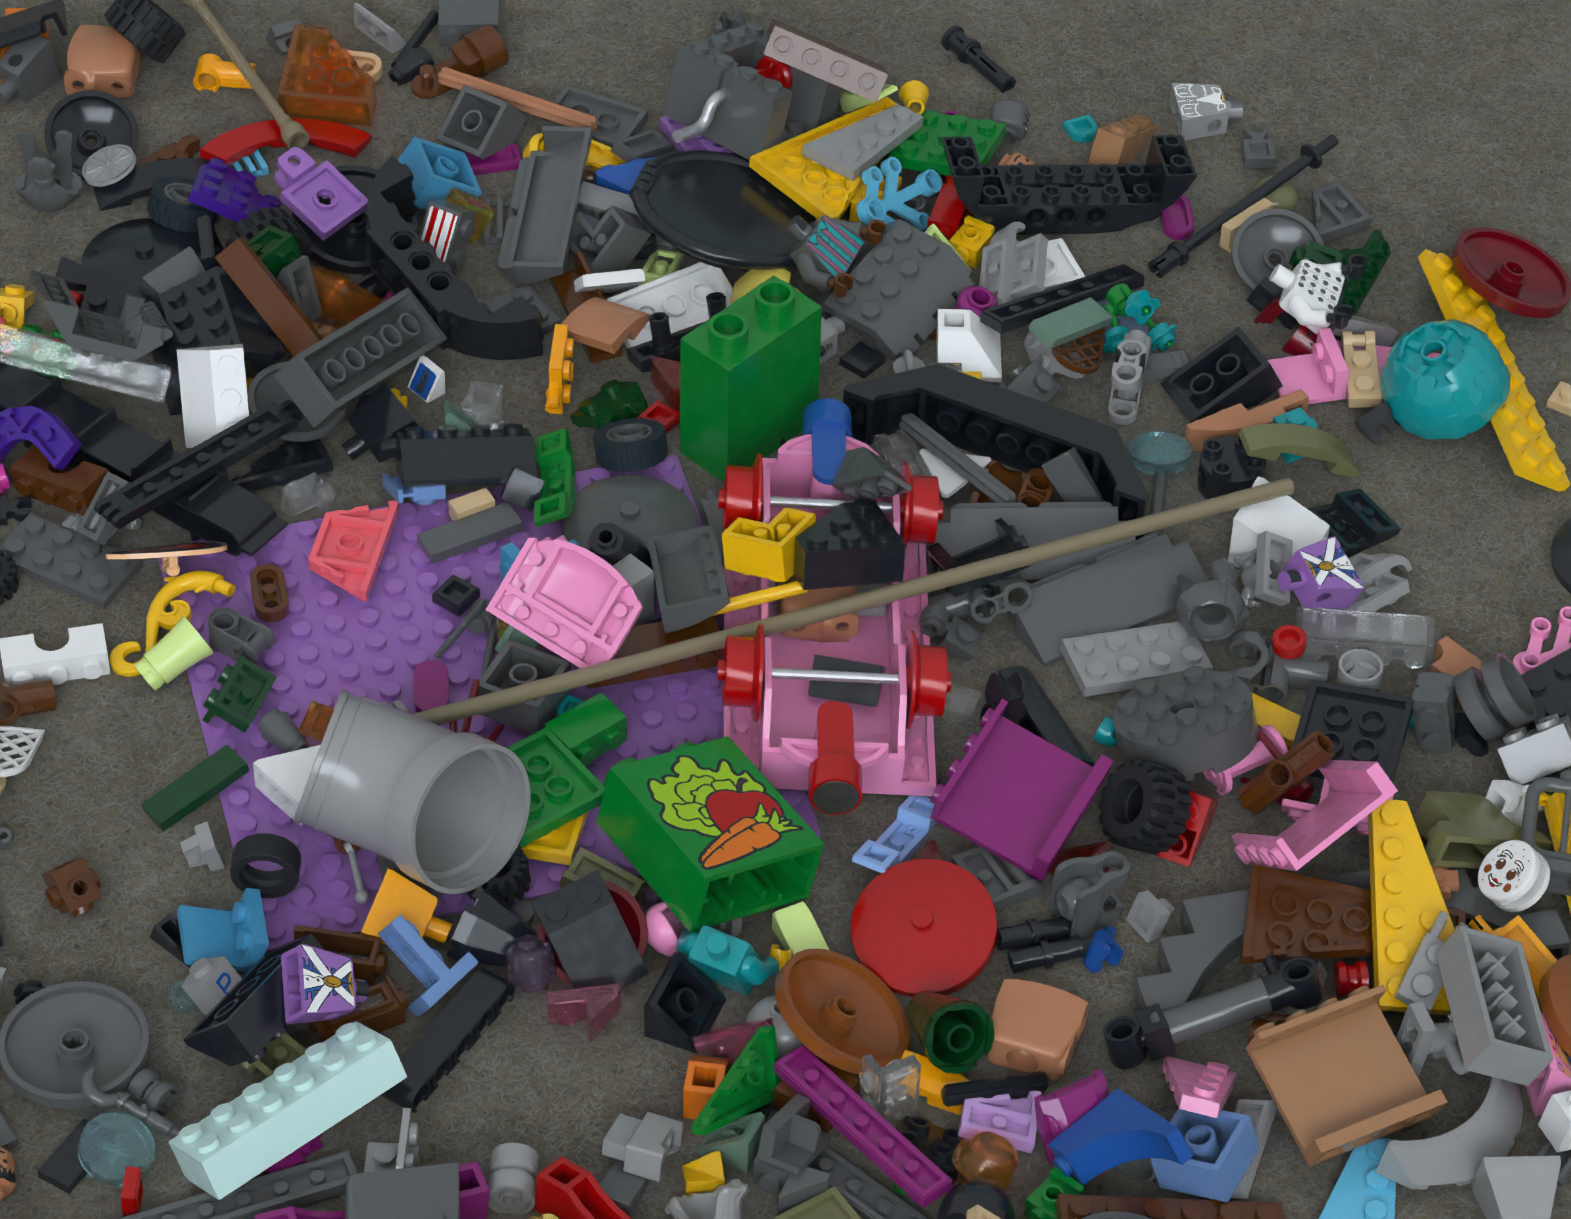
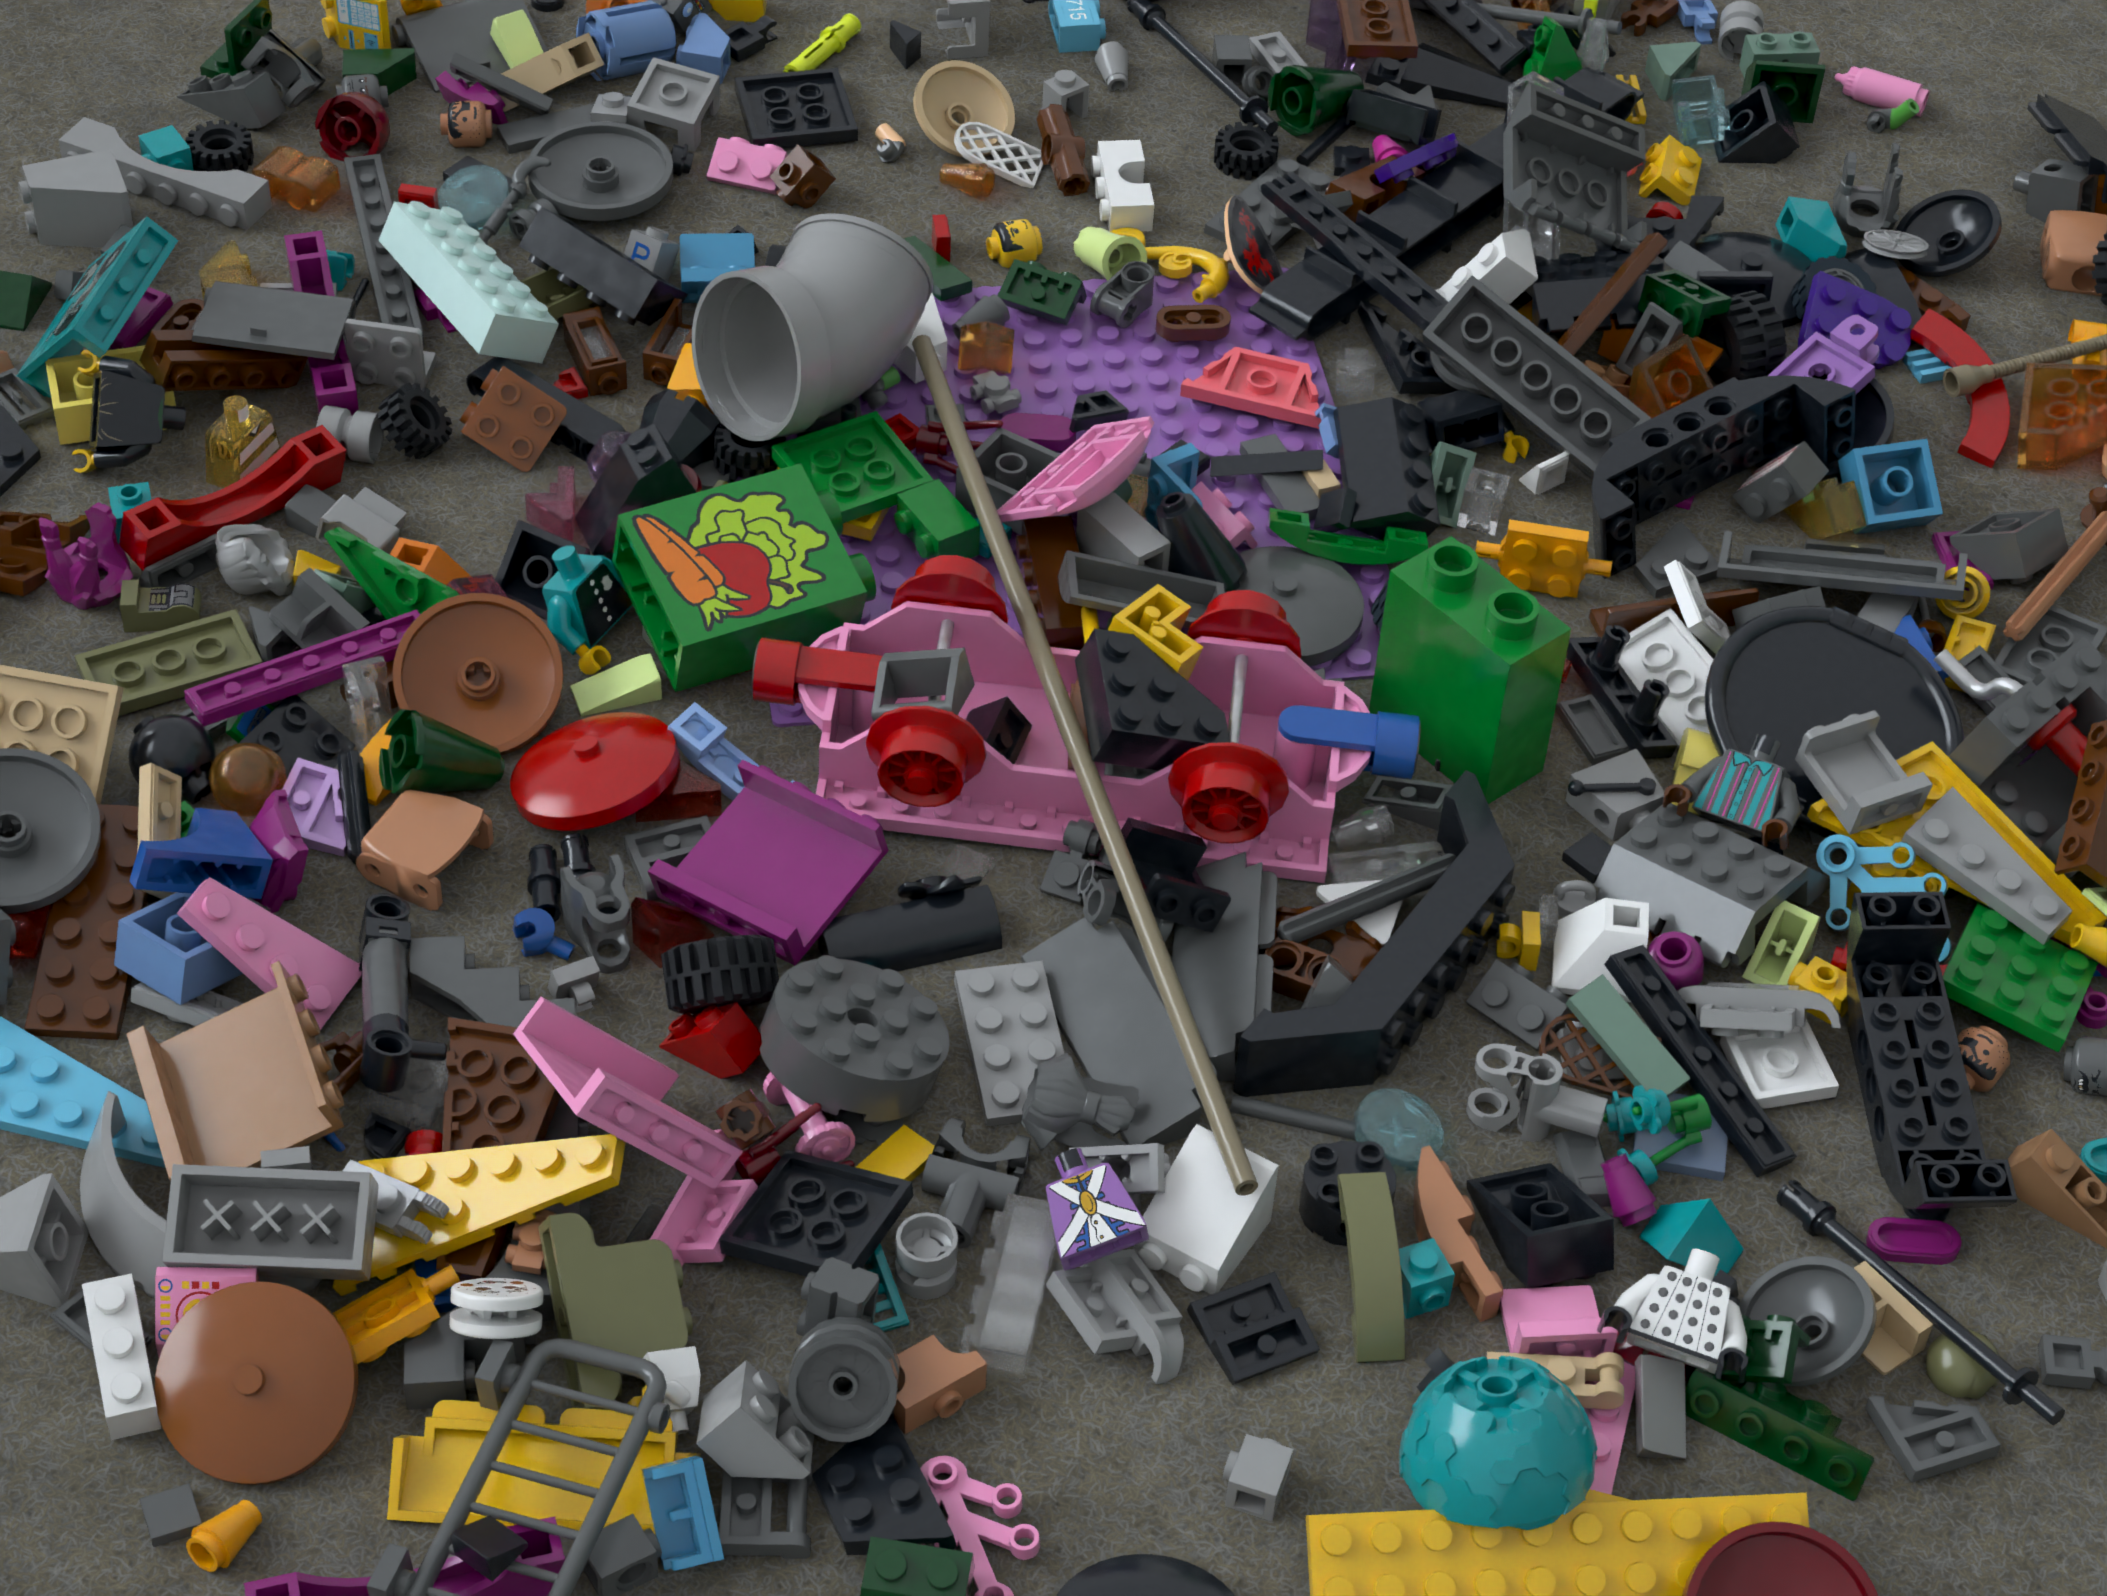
camera: 95 degrees right, 0 degrees up
(38, 938) = (745, 164): none -> bright pink bracket
(46, 770) = (969, 178): none -> clear orange cone
(87, 216) = (1811, 228): none -> teal slope
(149, 729) = (1013, 241): none -> yellow head
(150, 779) = (941, 236): none -> red tile
(319, 985) = (591, 285): torso -> none
(401, 1035) = (571, 383): none -> red tile
(404, 650) = (1096, 409): none -> black tile
(424, 963) = (639, 385): medium blue bracket -> none
(461, 536) = (1266, 463): none -> black sticker
(478, 1054) = (513, 418): none -> dark orange bracket
(495, 1123) = (414, 420): none -> black tyre
(604, 324) = (1610, 586): nougat slope -> none
(808, 187) = (1859, 773): none -> light grey panel
(851, 667) = (922, 675): none -> dark grey tile
(868, 476) = (1270, 731): dark grey slope -> none
(1088, 1186) = (159, 808): none -> tan tile
(1191, 336) = (1627, 1191): none -> magenta cone
(1212, 316) = (1690, 1226): none -> teal slope
(1289, 642) = (992, 1177): red tile -> none
(1477, 508) = (1257, 1476): none -> light grey brick

